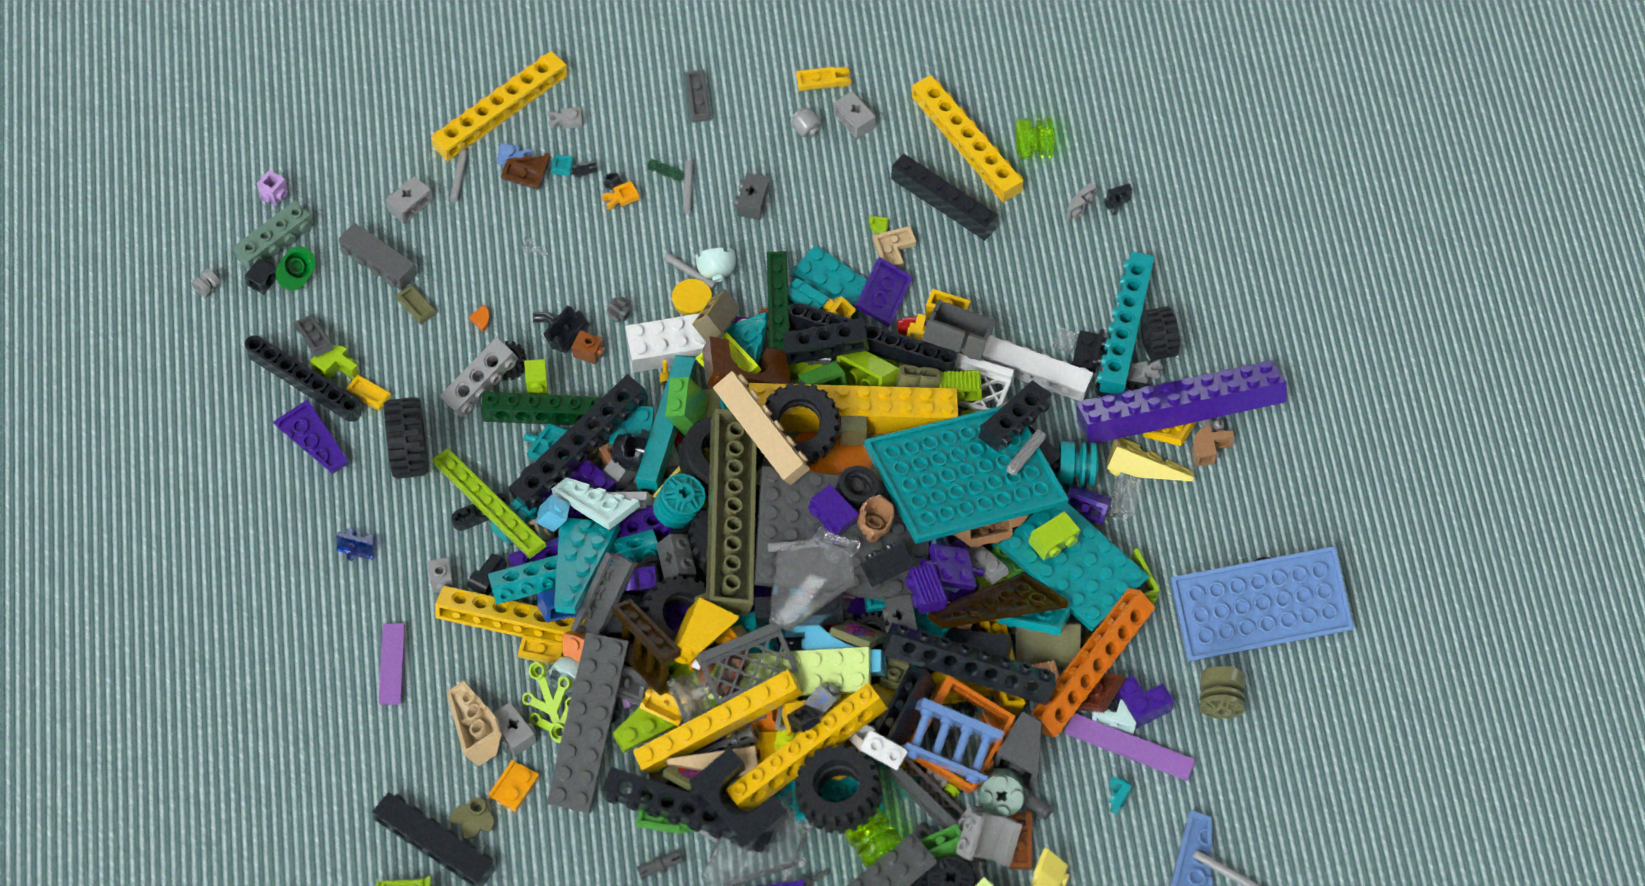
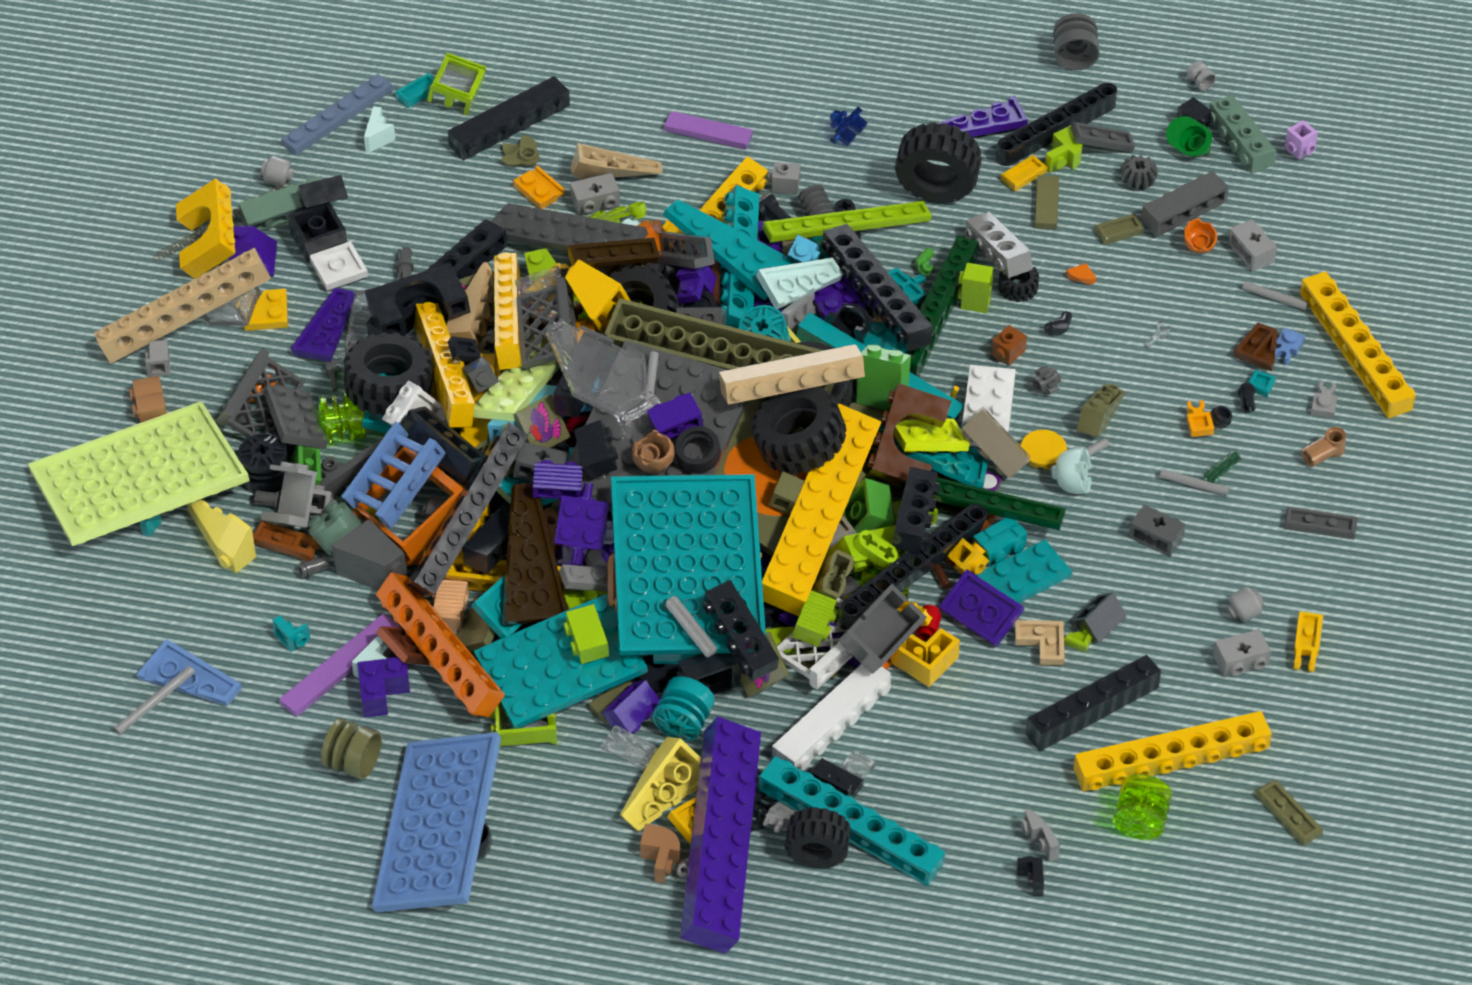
camera: 110 degrees right, 10 degrees down
(196, 382) = (1076, 41): none -> dark grey wheel
(345, 301) = (1139, 172): none -> dark grey gear
(400, 365) = (1047, 202): none -> olive tile
(412, 238) = (1200, 236): none -> orange hair
(469, 536) = (815, 201): none -> dark grey piece
(507, 441) = (922, 261): none -> bright green arm
(565, 329) = (1040, 331): black hinge -> none
(621, 104) = (1328, 446): none -> medium nougat piece
(636, 264) = (1099, 410): none -> olive slope
(854, 217) = (1100, 616): none -> panel
(879, 357) = (875, 548): none -> lime beam
(986, 60) = (1289, 812): none -> olive tile

